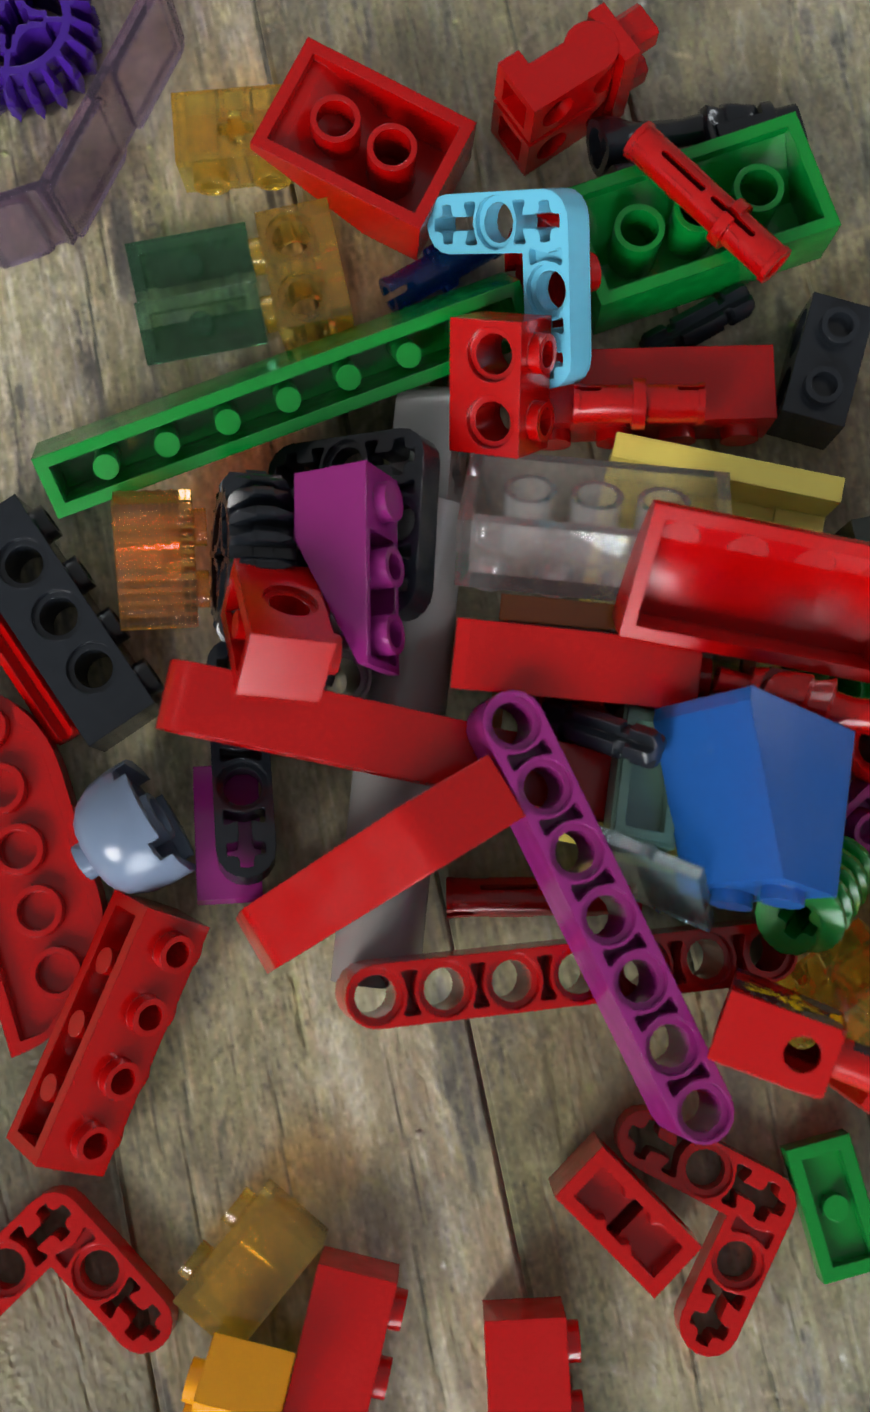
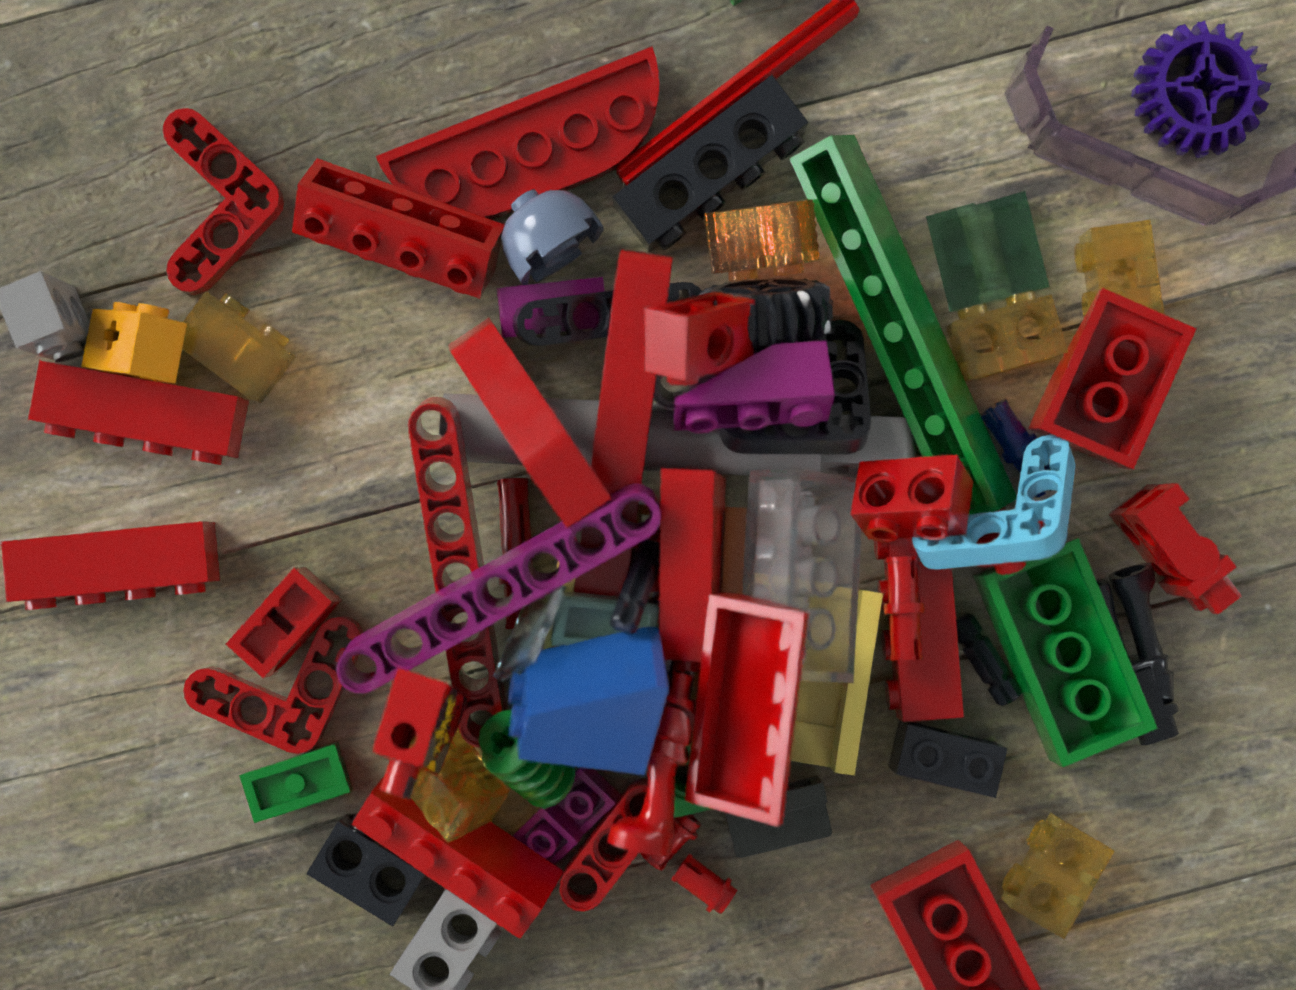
camera: 85 degrees right, 5 degrees up
(724, 218) = (1028, 699): red pin -> none

